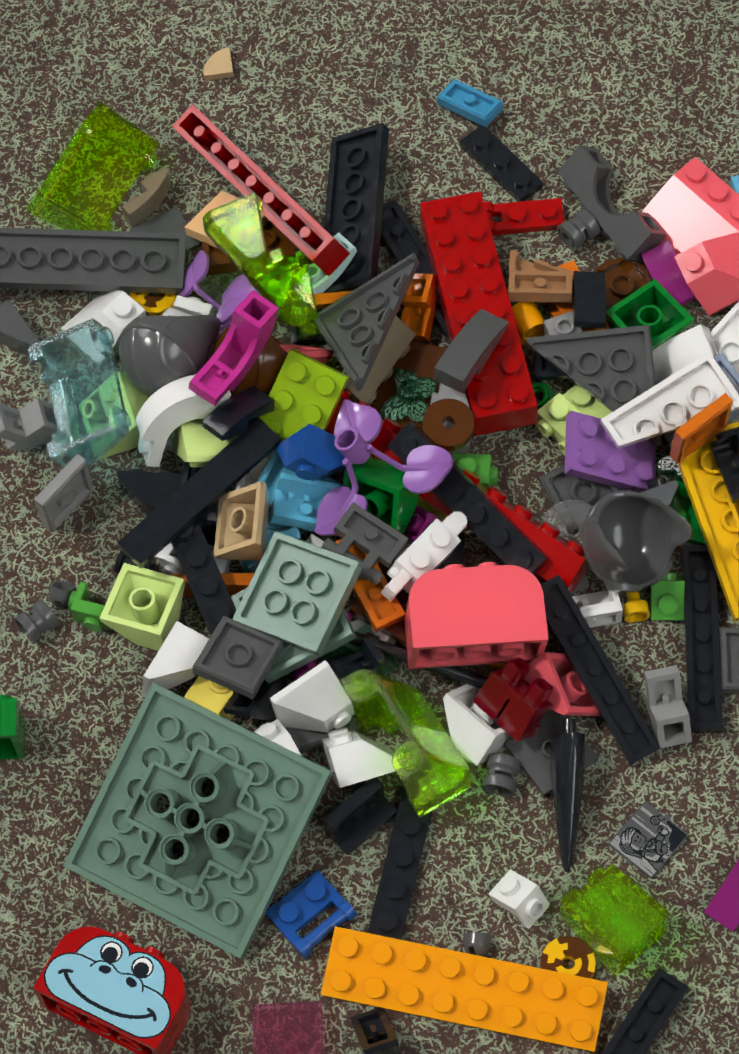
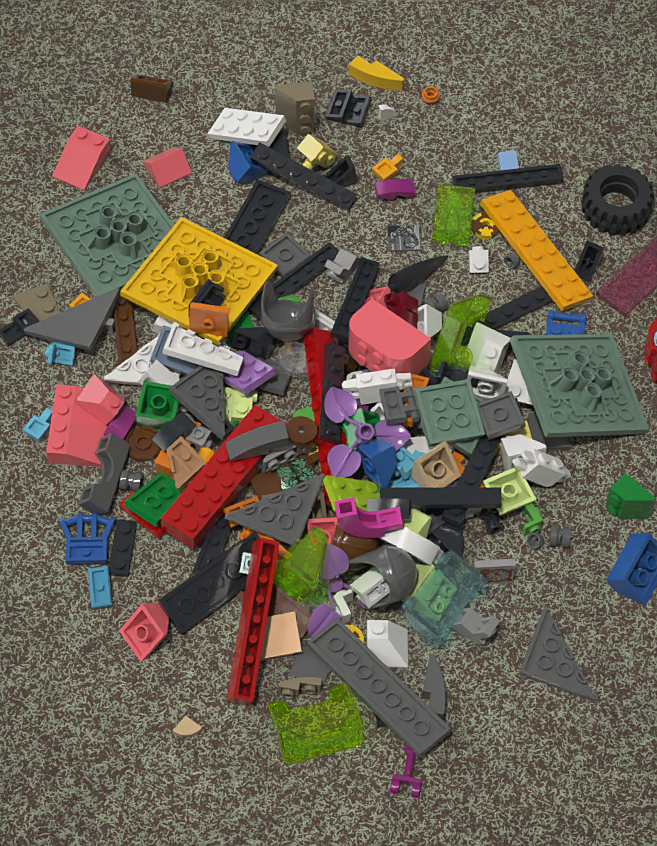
camera: 140 degrees left, 5 degrees down
(131, 660) = (541, 468): none -> white hinge
(368, 104) = (145, 629): none -> coral slope
(521, 223) = (154, 498): none -> green plate
(534, 121) = (87, 549): none -> blue plate

